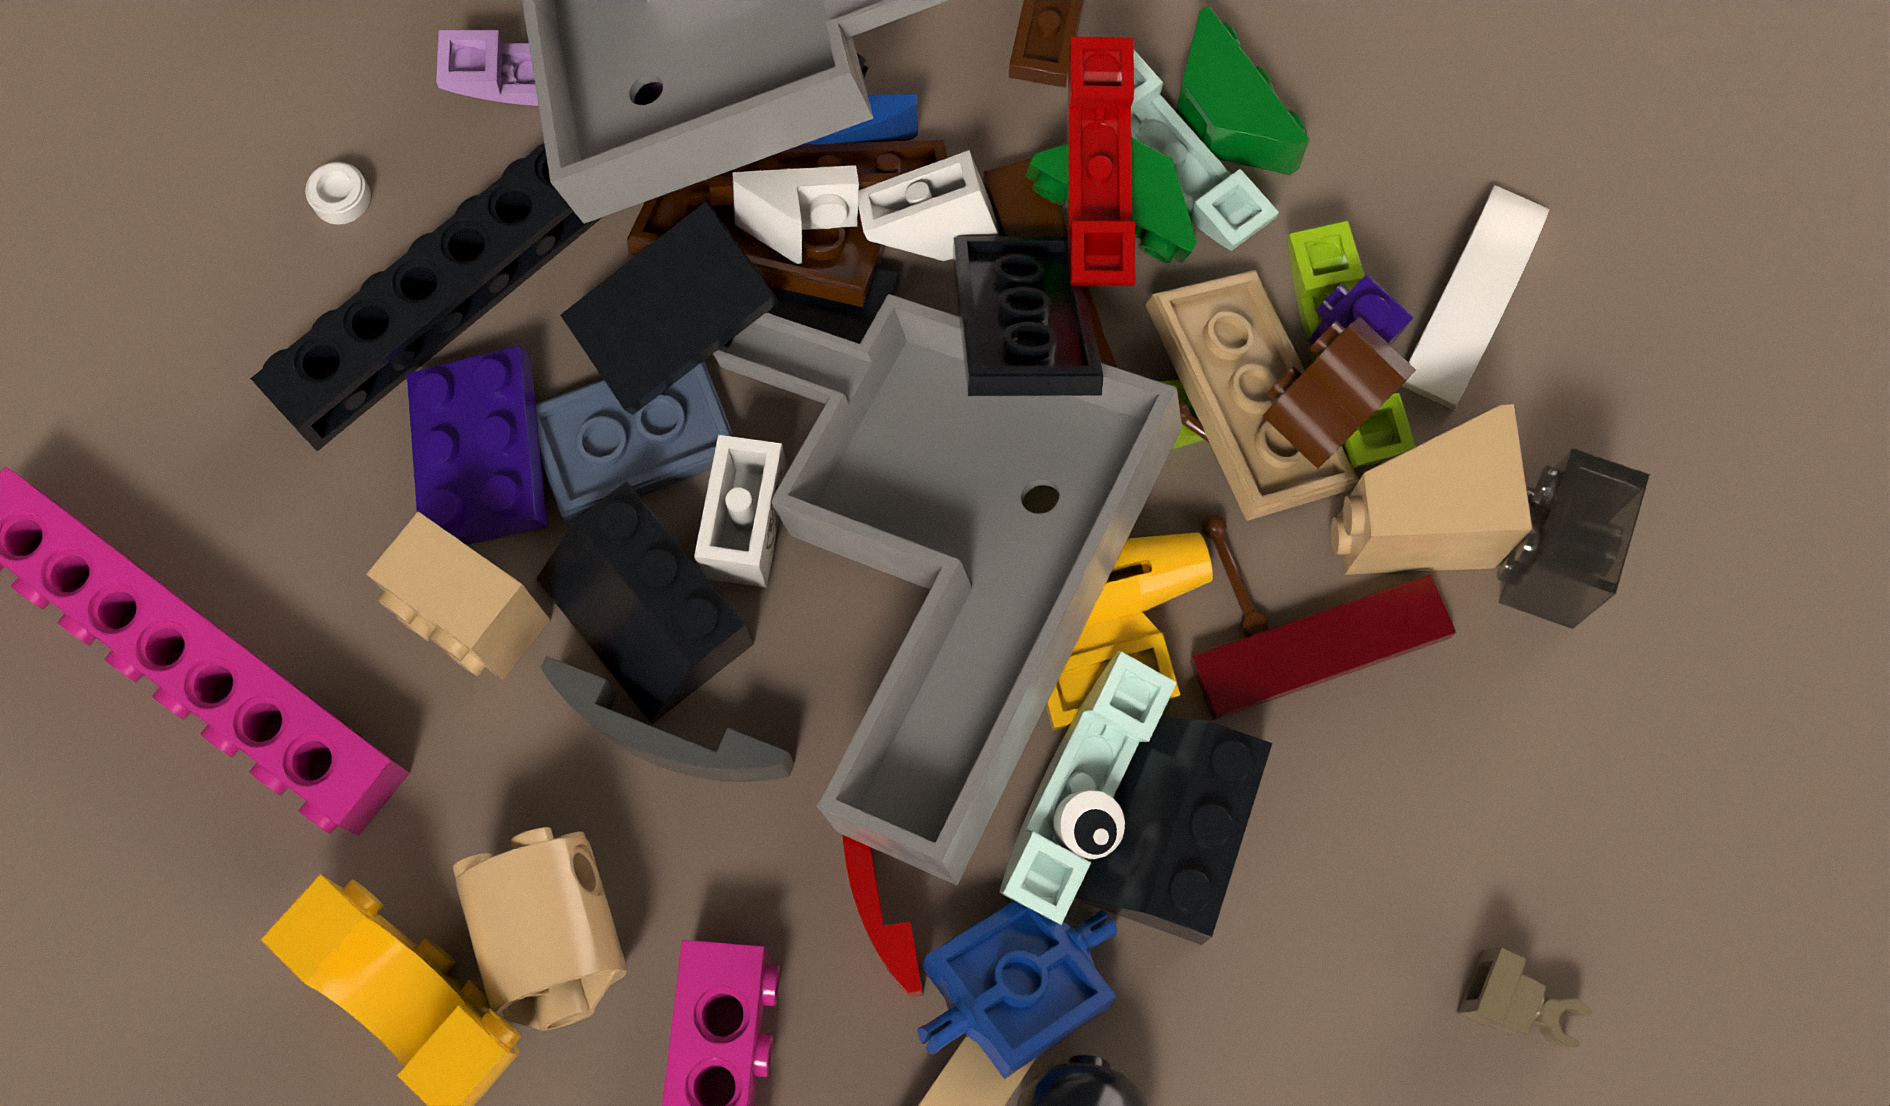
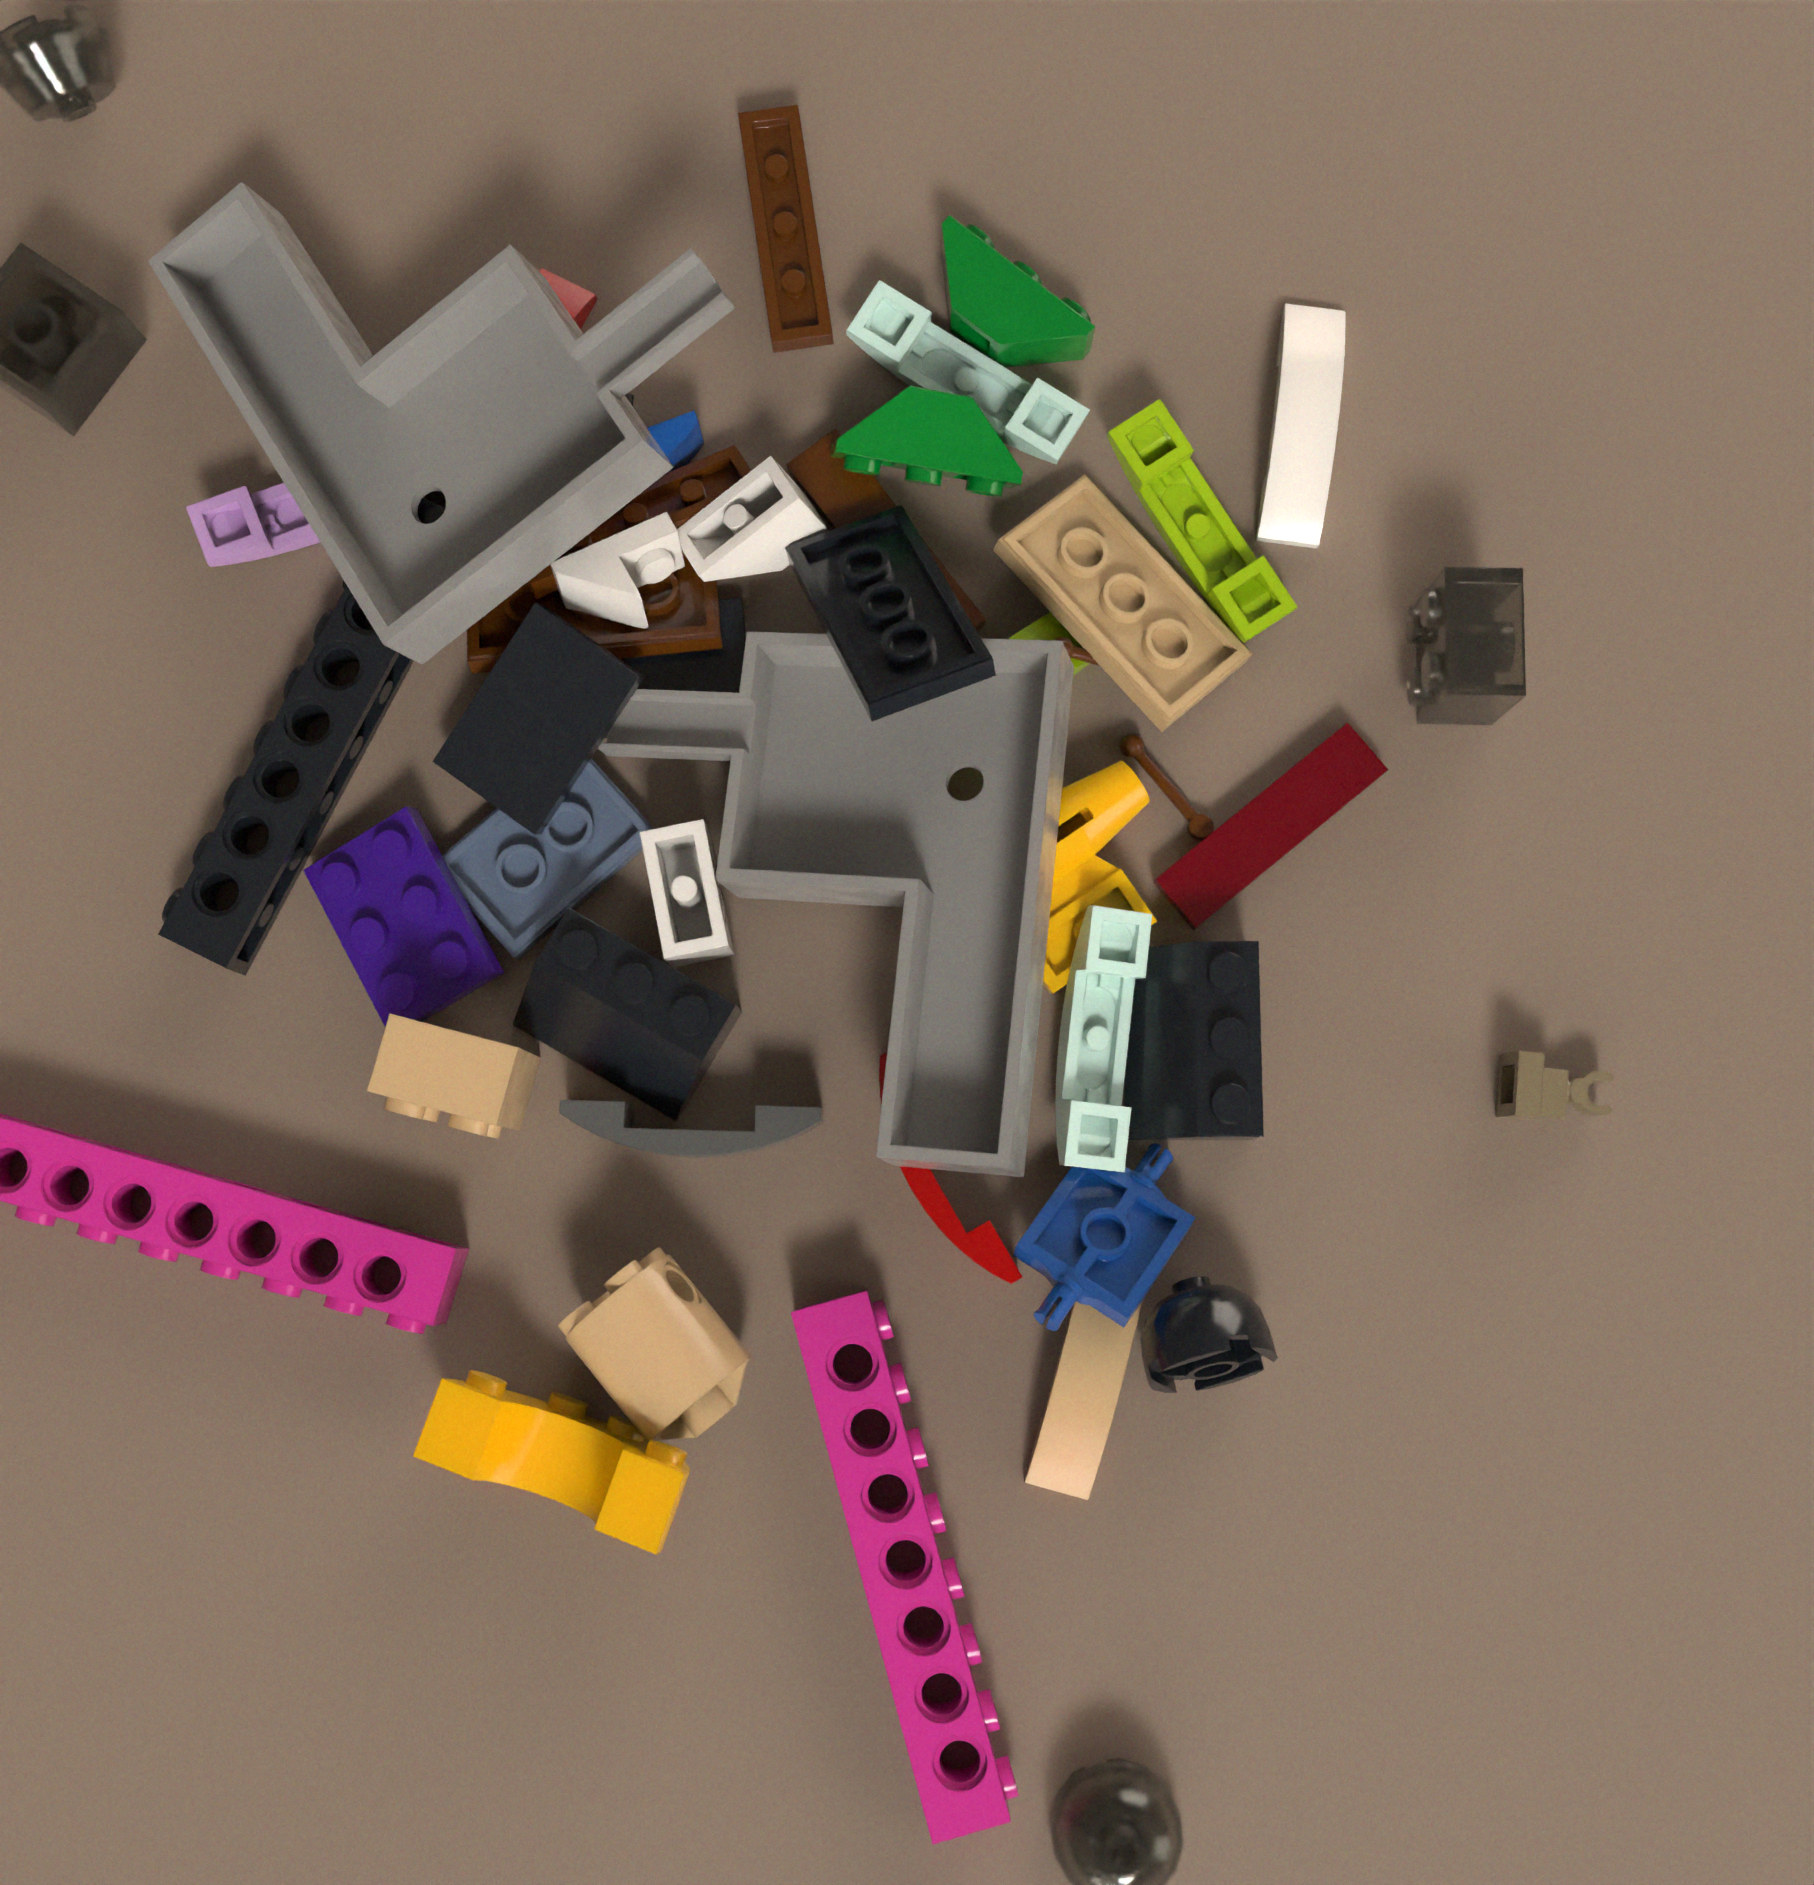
camera: 20 degrees left, 10 degrees up
(338, 193) = (151, 708): white tile -> none
(1089, 824) = (1117, 1072): white tile -> none
(1100, 161) = (906, 430): red slope -> none
(1337, 391) = (1209, 583): reddish brown brick -> none
(1363, 301) = (1205, 505): dark purple brick -> none
(1439, 504) = (1338, 656): tan slope -> none

